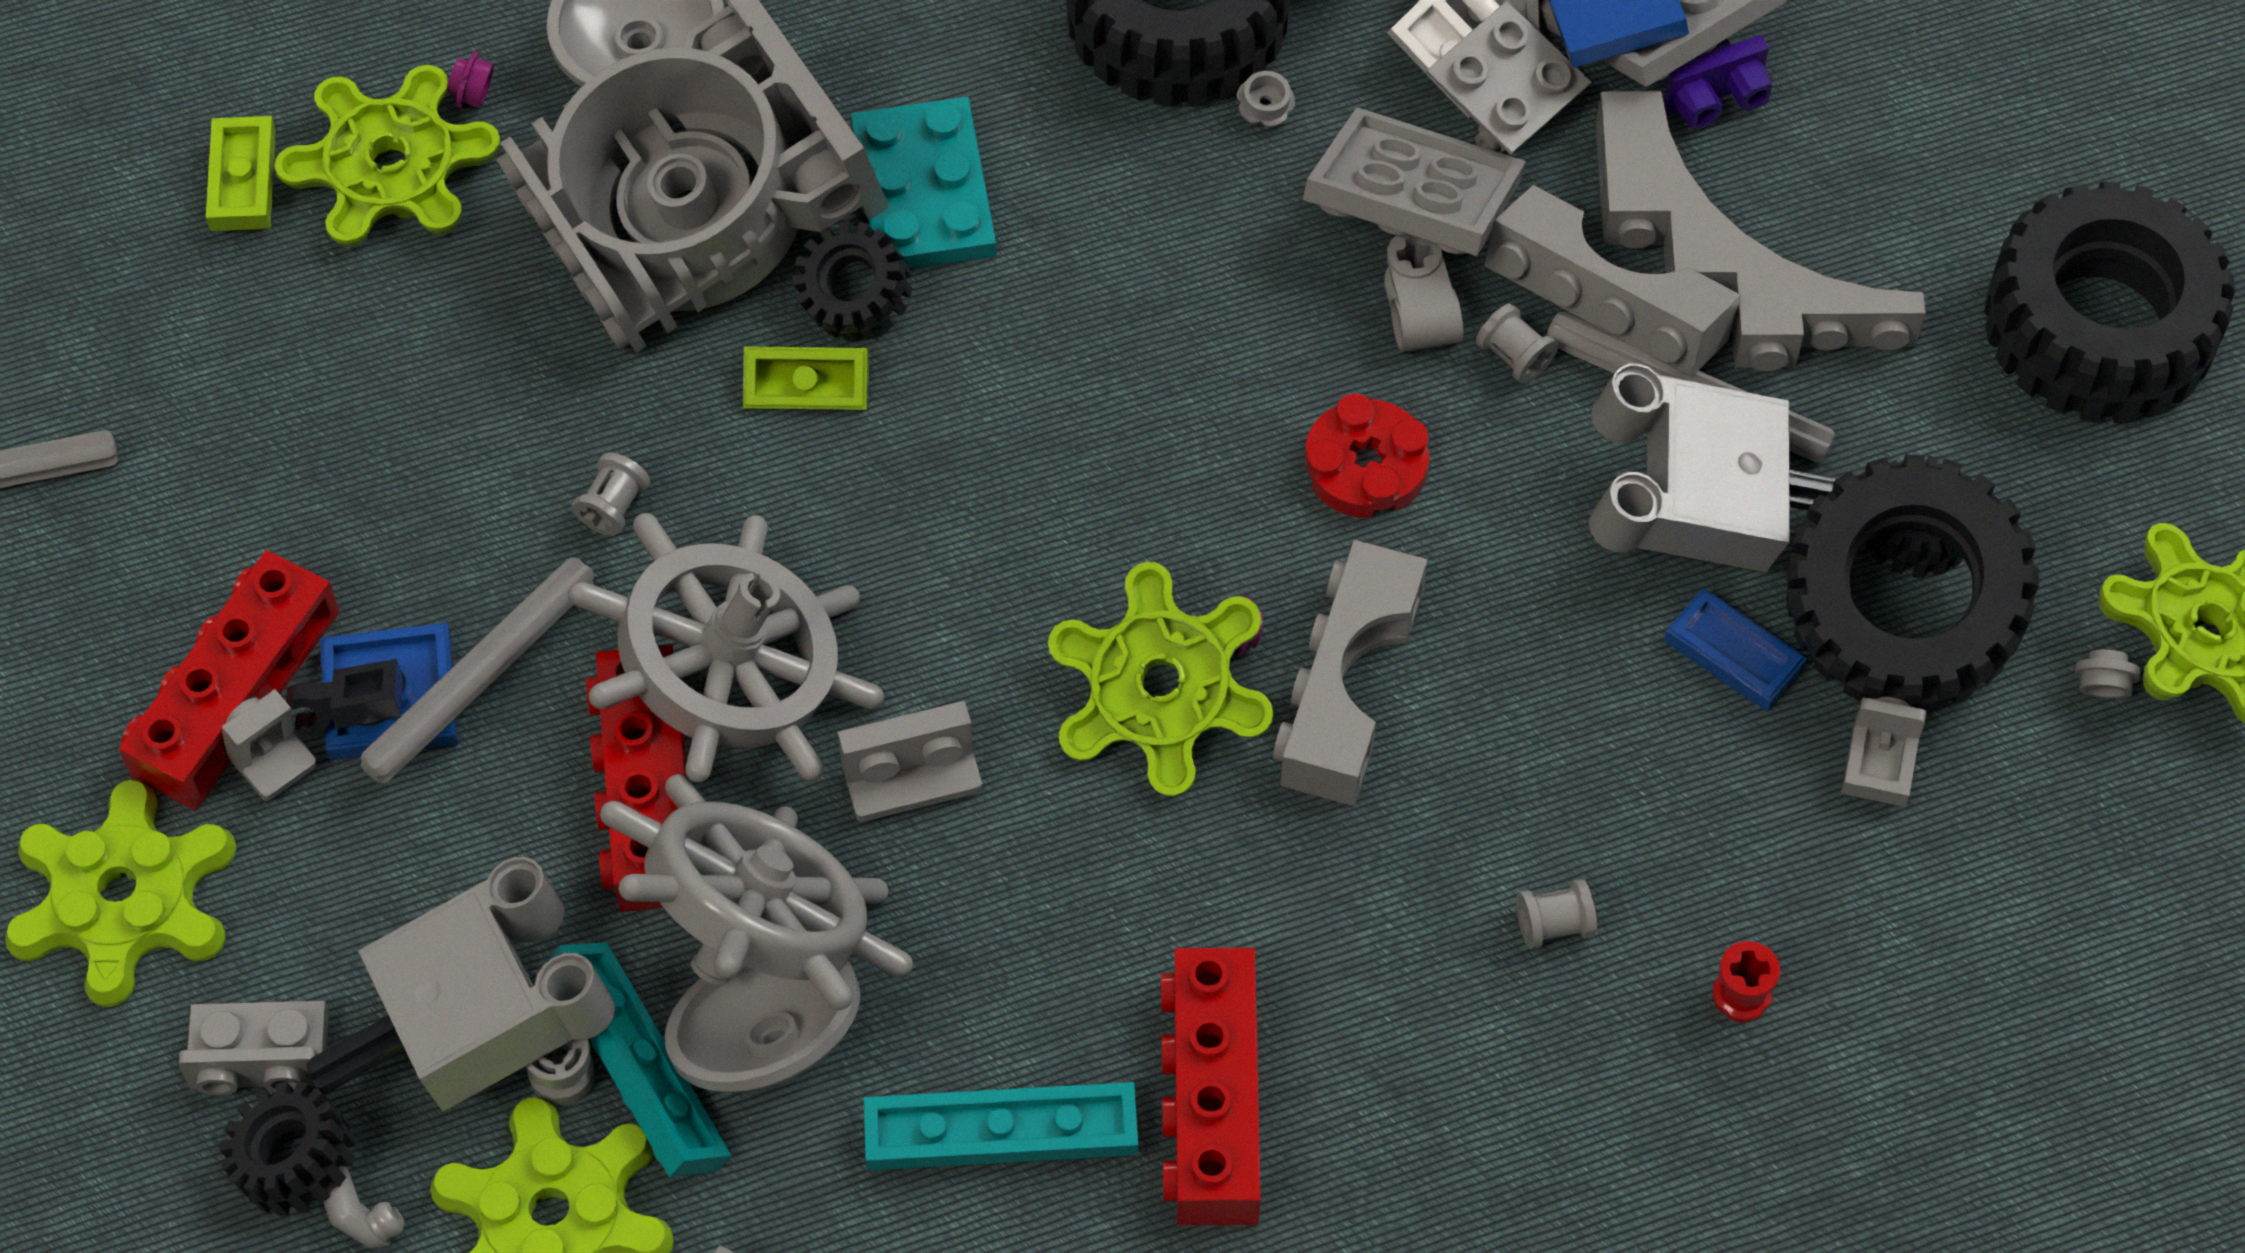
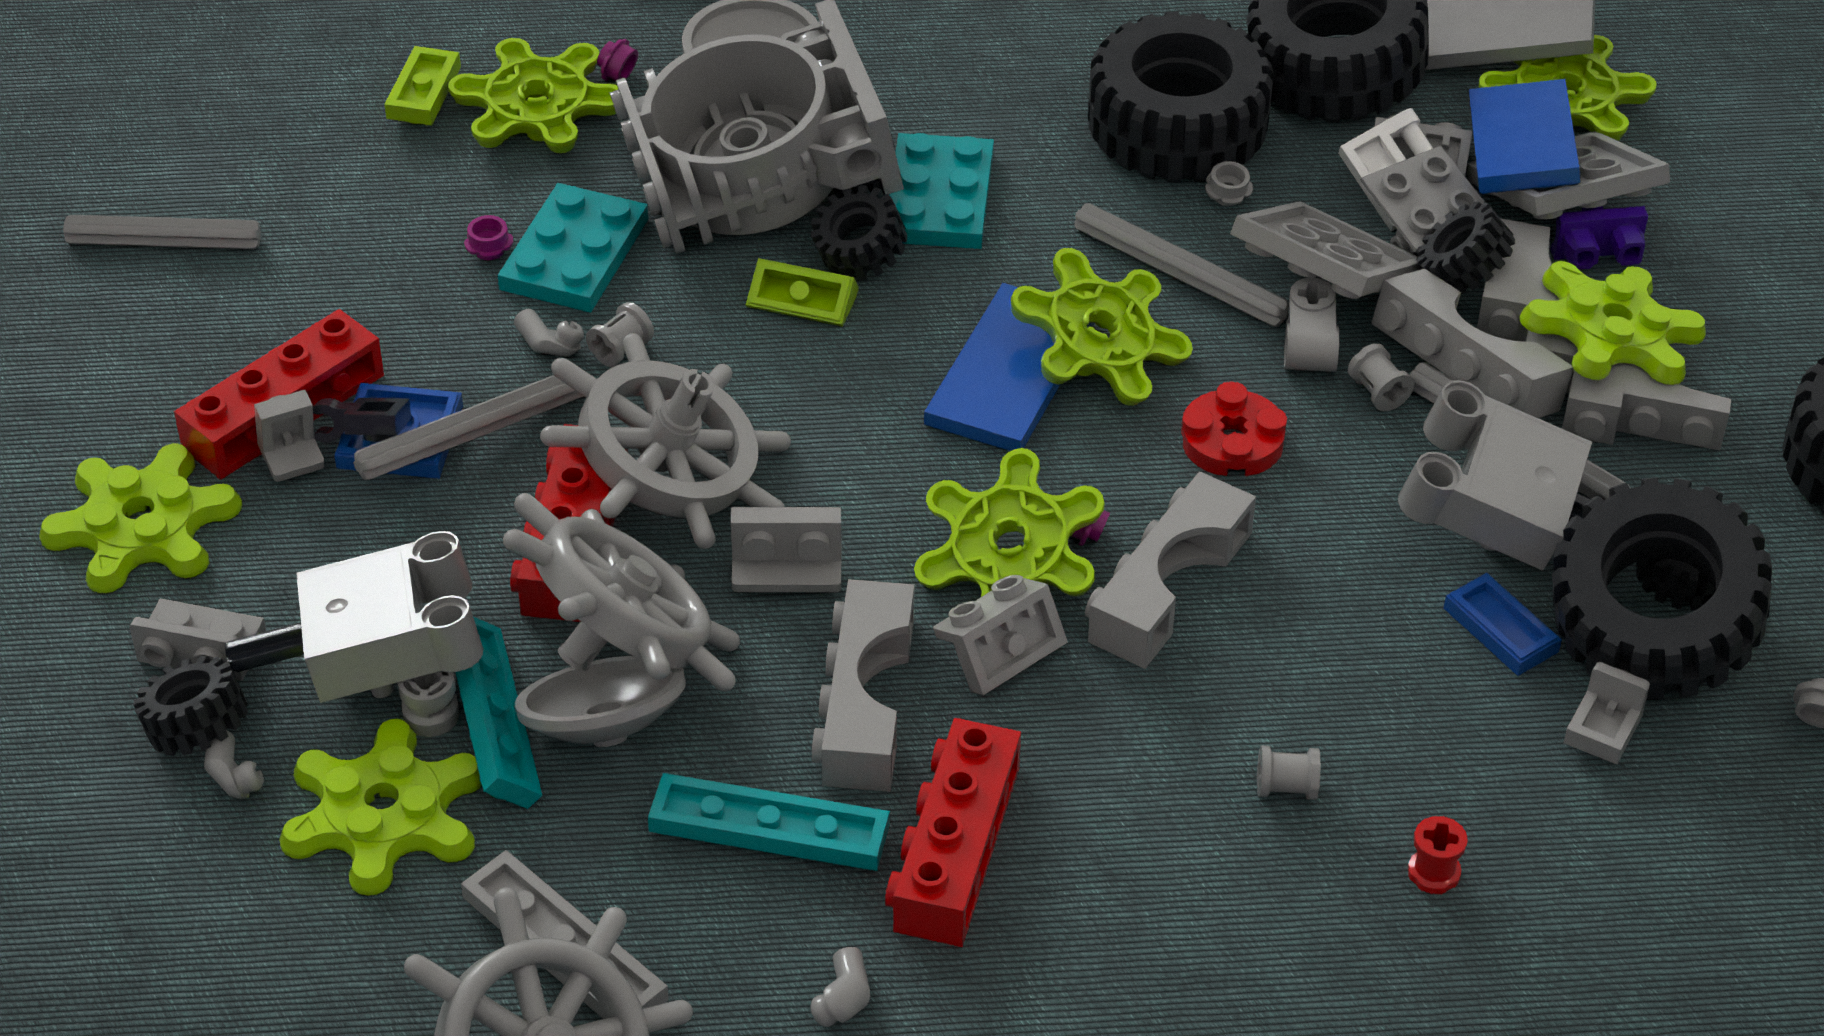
camera: 15 degrees right, 15 degrees down
(401, 373) = (488, 237): none -> magenta plate
(508, 372) = (573, 247): none -> teal plate
(524, 520) = (559, 342): none -> light grey arm
(1069, 988) = (859, 732): none -> light grey arch
(1084, 427) = (996, 380): none -> blue tile
(1188, 808) = (1003, 631): none -> light grey bracket
(1197, 323) = (1110, 305): none -> lime plate
(1241, 230) = (1182, 265): none -> light grey axle
(1555, 132) = (1467, 246): none -> black tyre
(1764, 247) = (1614, 322): none -> lime plate

